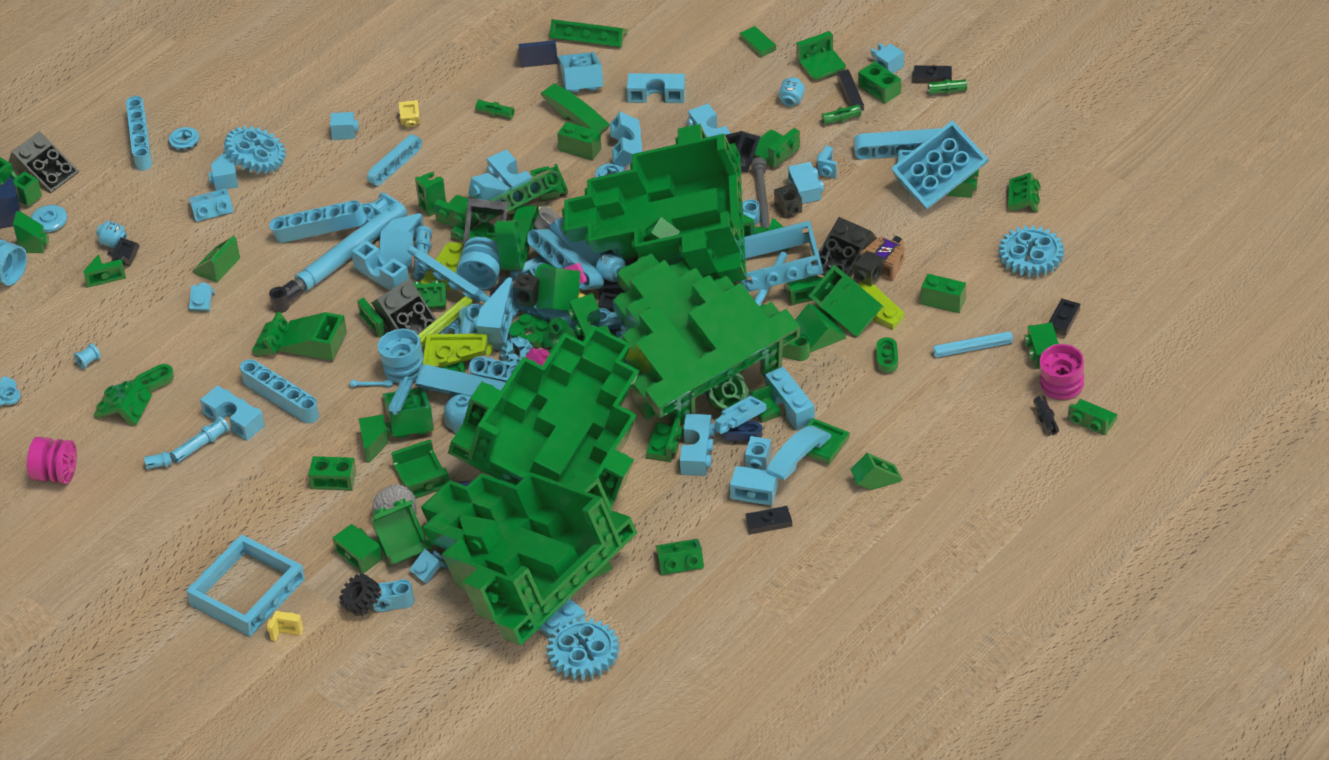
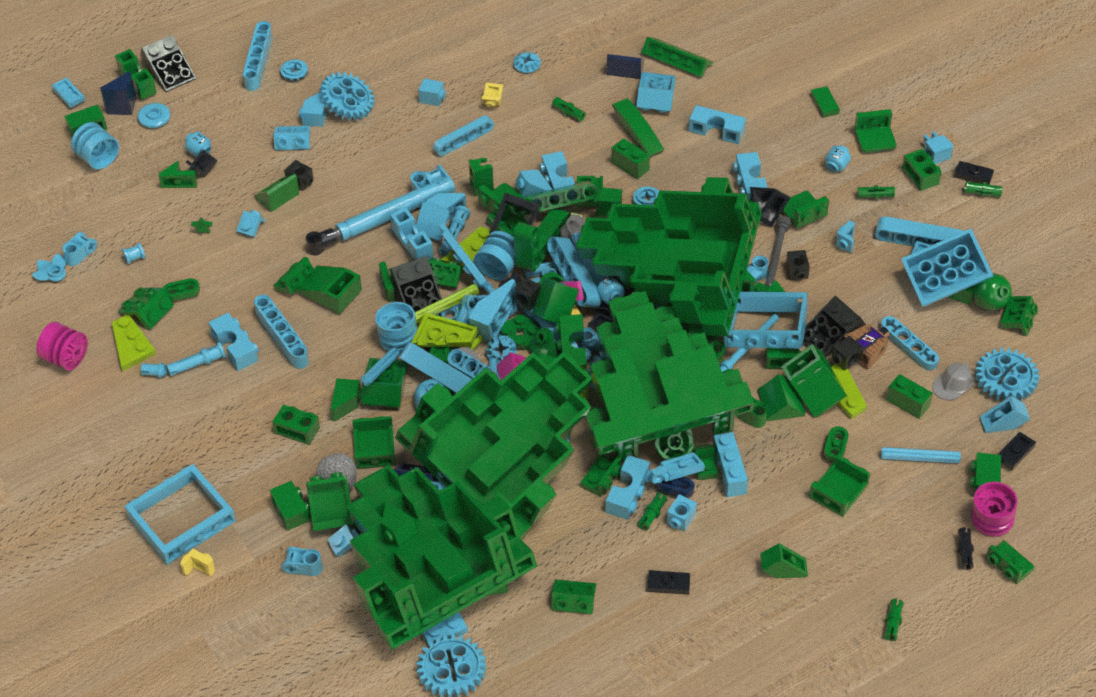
camera: 15 degrees right, 5 degrees up
(25, 366) = (77, 248): none -> medium azure piece
(30, 233) = (129, 126): green slope -> none
(122, 442) = (131, 343): none -> lime wing
(150, 311) = (202, 225): none -> green piece
(241, 234) = (303, 173): none -> pearl dark grey brick
(318, 221) = (374, 178): medium azure beam -> none
(360, 594) = (272, 553): black tyre -> none
(388, 383) = (379, 349): medium azure hinge -> none
(438, 76) = (529, 66): none -> medium azure gear
(574, 183) = (605, 200): none -> green brick
(627, 132) = (676, 161): medium azure arch -> none
(659, 229) = (660, 271): green slope -> none
(728, 460) = (652, 511): none -> green pin
(753, 486) = (665, 544): medium azure brick -> none
(795, 449) = (714, 520): medium azure slope -> none
(806, 181) = (819, 251): medium azure brick -> none
(829, 449) = (744, 515): green plate -> none
(849, 88) = (891, 169): black piece -> none
(905, 390) = (840, 486): none -> green panel
(945, 255) = (907, 344): none -> medium azure beam
(981, 270) = (953, 381): none -> light grey piece
(992, 178) = (993, 292): none -> green cylinder
(999, 495) = (893, 619): none -> green pin
(1042, 288) = (1005, 416): none -> medium azure slope

